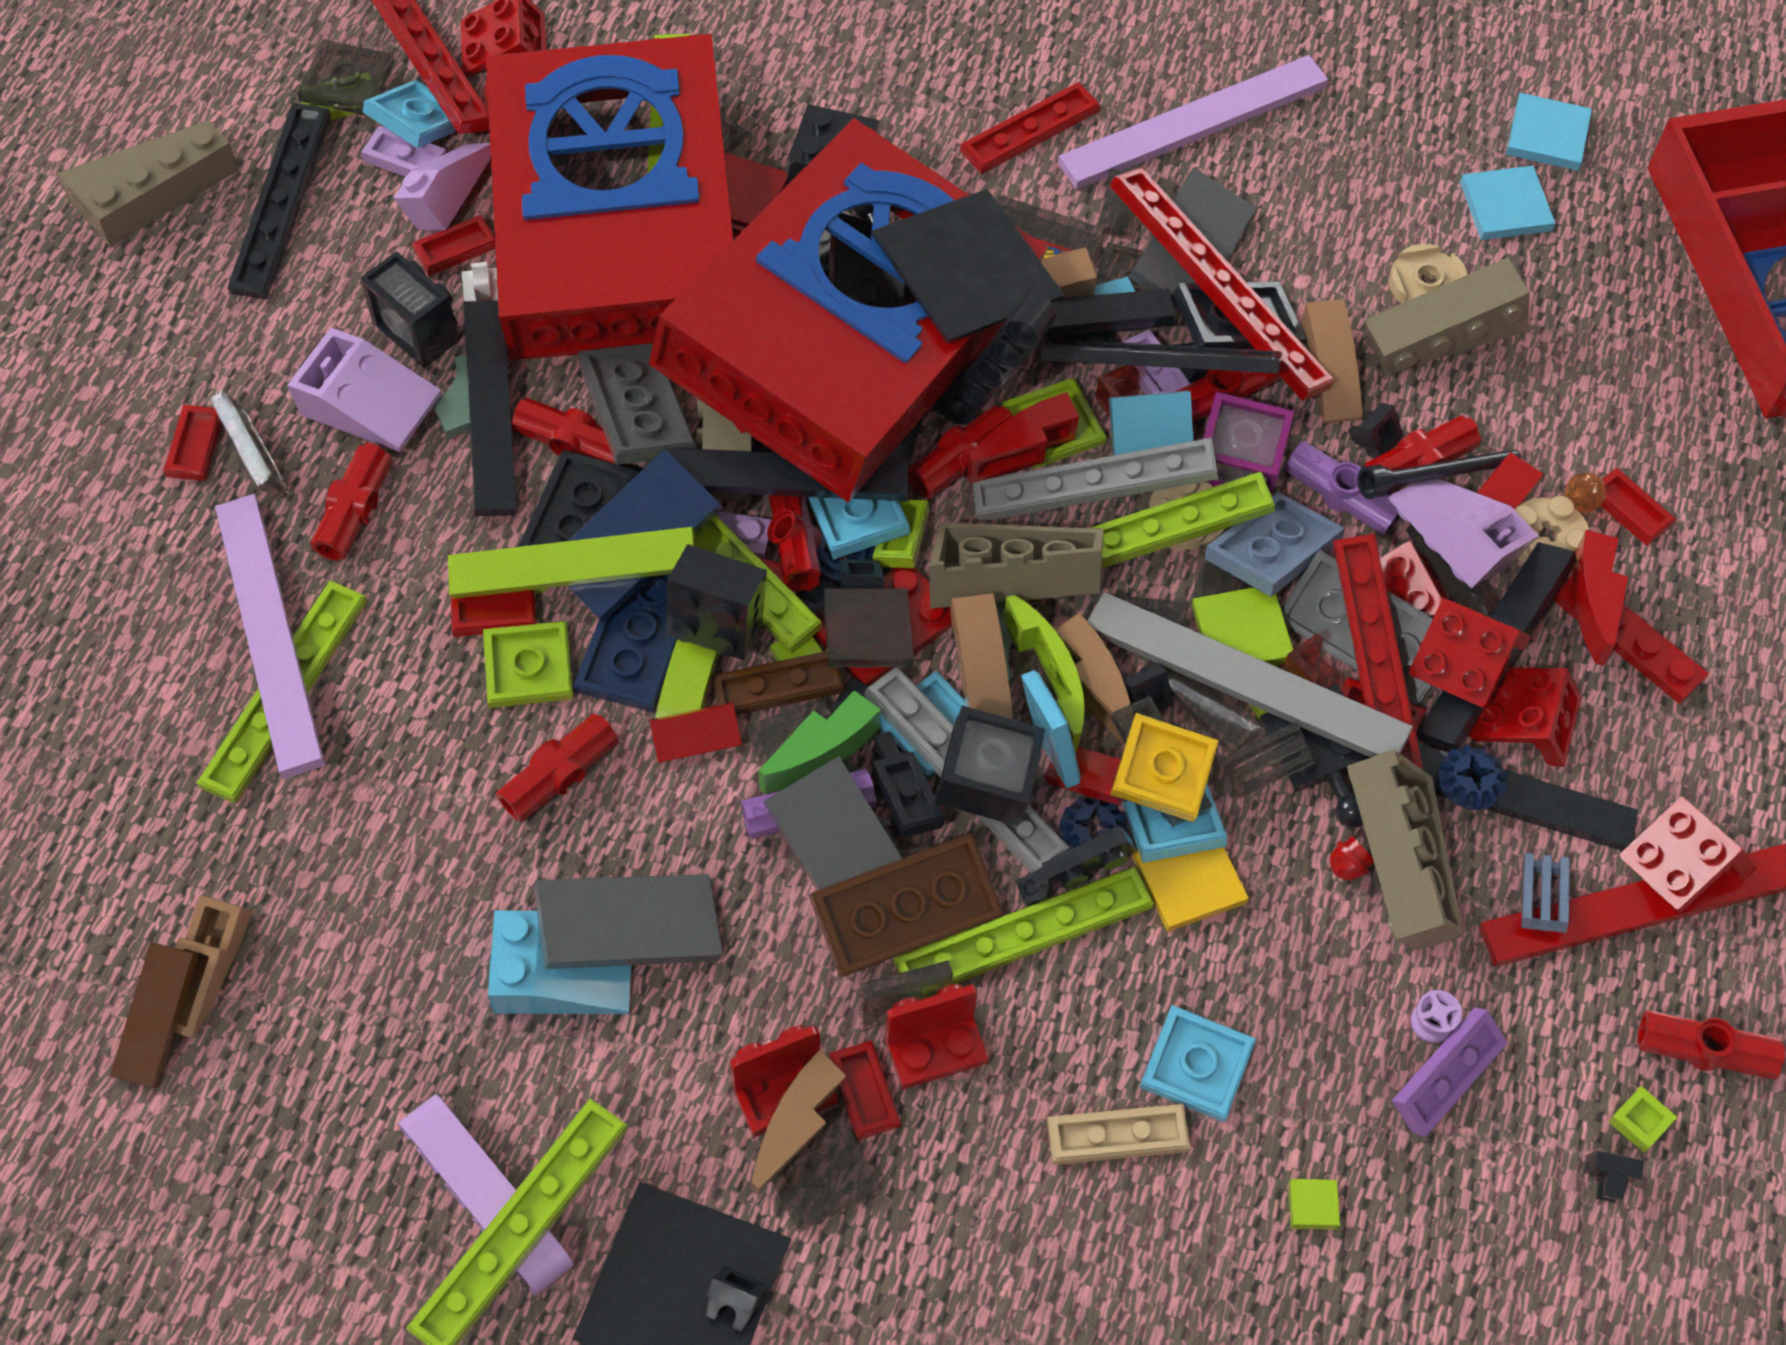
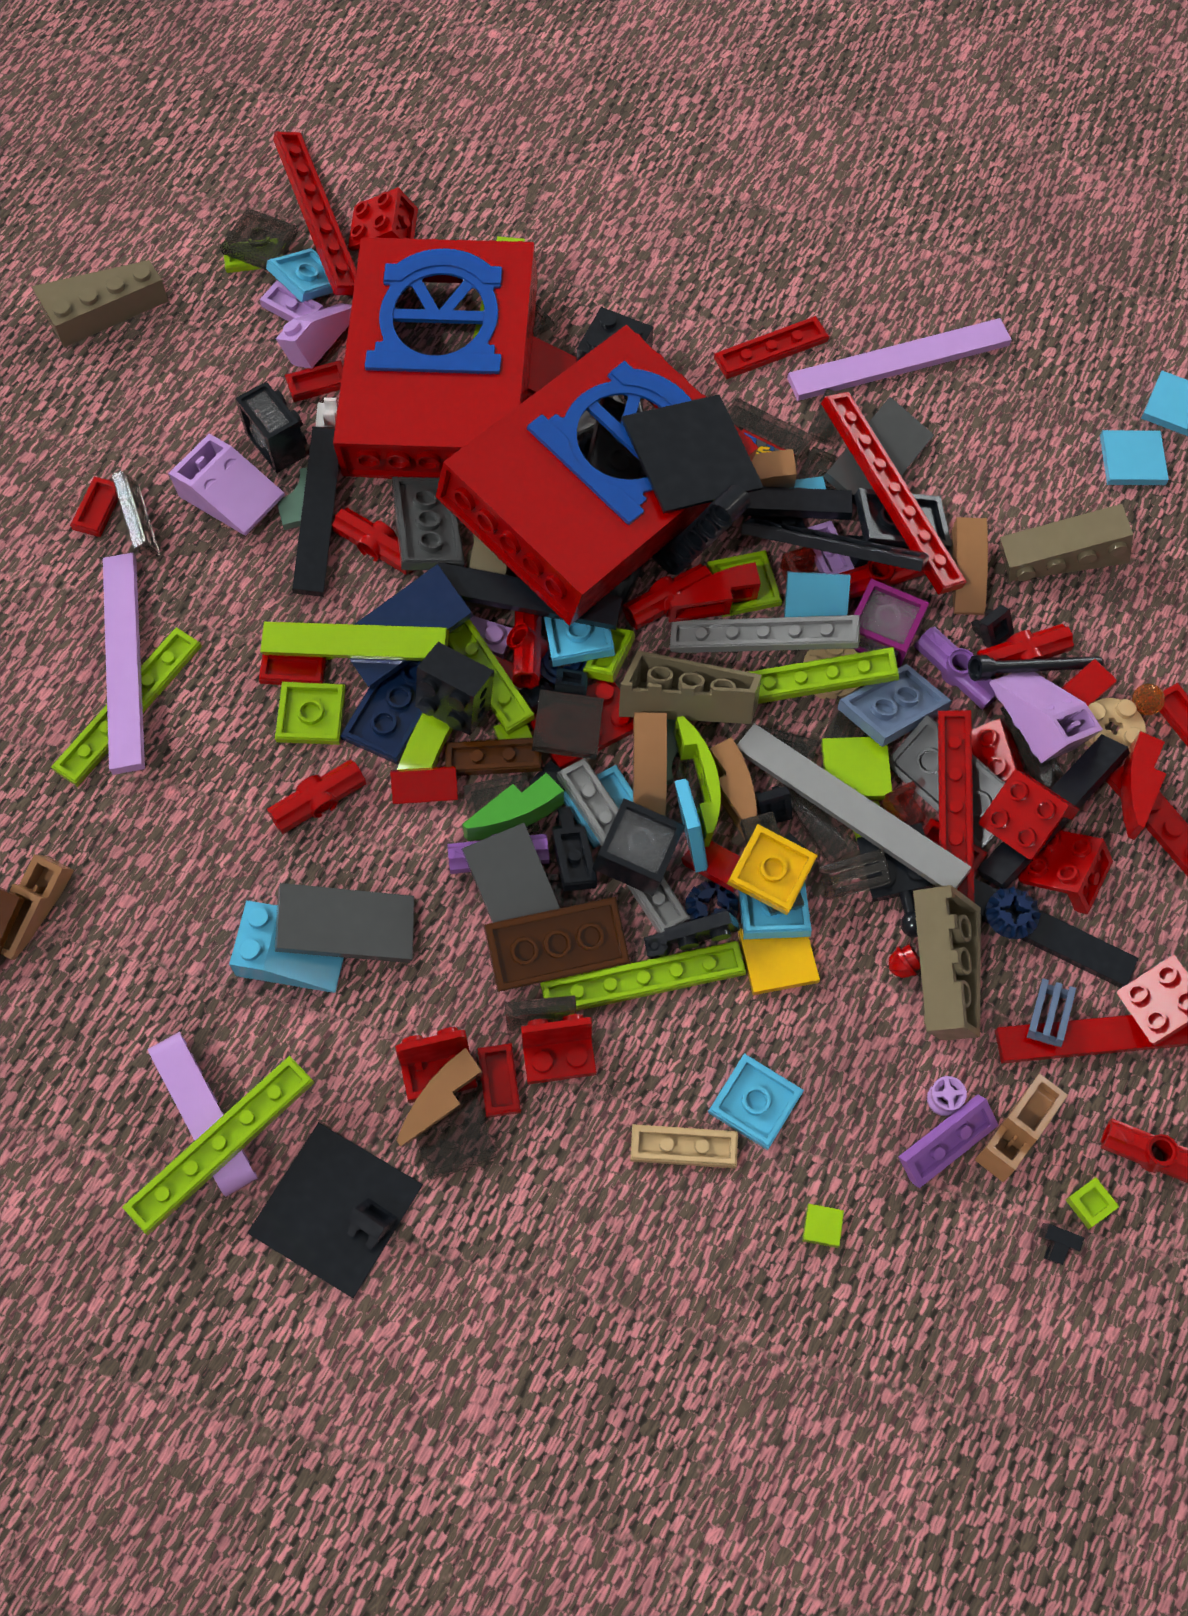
camera: 10 degrees right, 5 degrees up
(279, 201) = (193, 329): black tile -> none
(351, 502) = (202, 569): red piece -> none
(574, 496) = (366, 589): black plate -> none
(1422, 260) = (1059, 495): tan plate -> none
(1536, 1041) = (1021, 1128): none -> medium nougat slope

